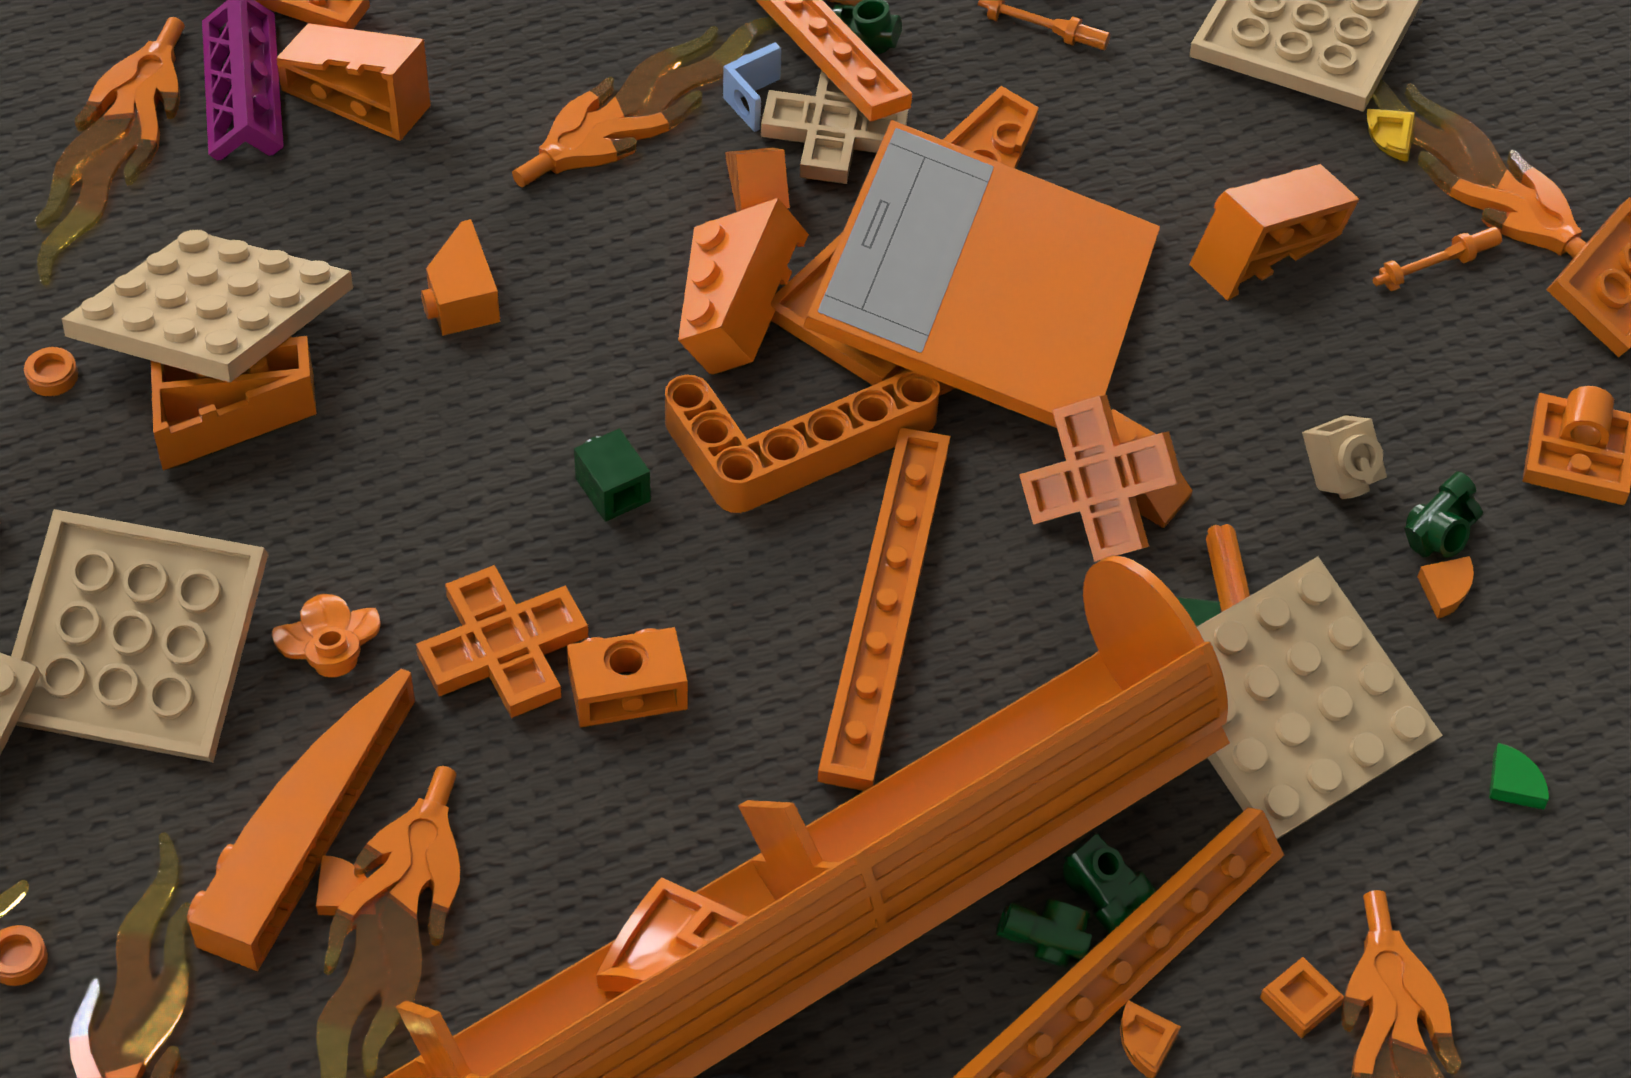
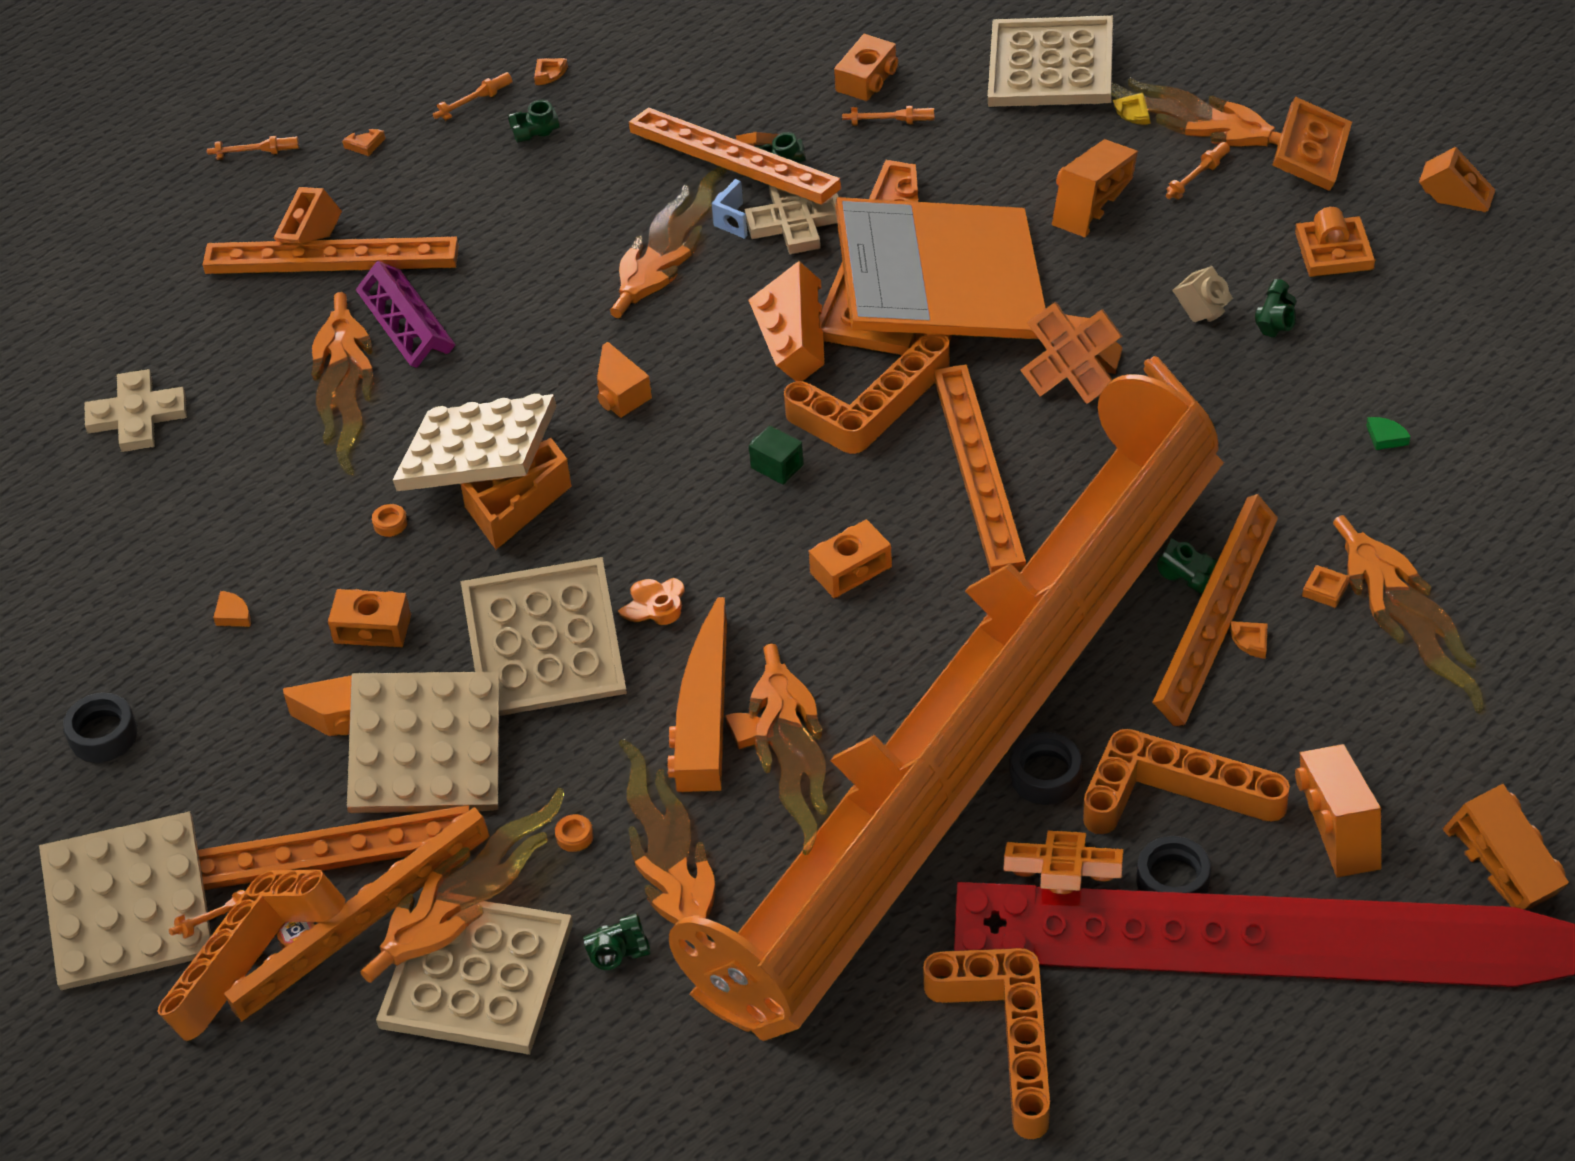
camera: 15 degrees left, 5 degrees down
(359, 76) = (482, 285): orange wedge -> none
(502, 641) = (763, 566): orange plate -> none
(661, 931) = (953, 677): orange plate -> none
(757, 176) = (766, 260): orange slope -> none
(1056, 933) = (1170, 601): dark green plate -> none
(1308, 700) = (1259, 430): tan plate -> none
(1446, 584) = (1294, 346): orange tile -> none

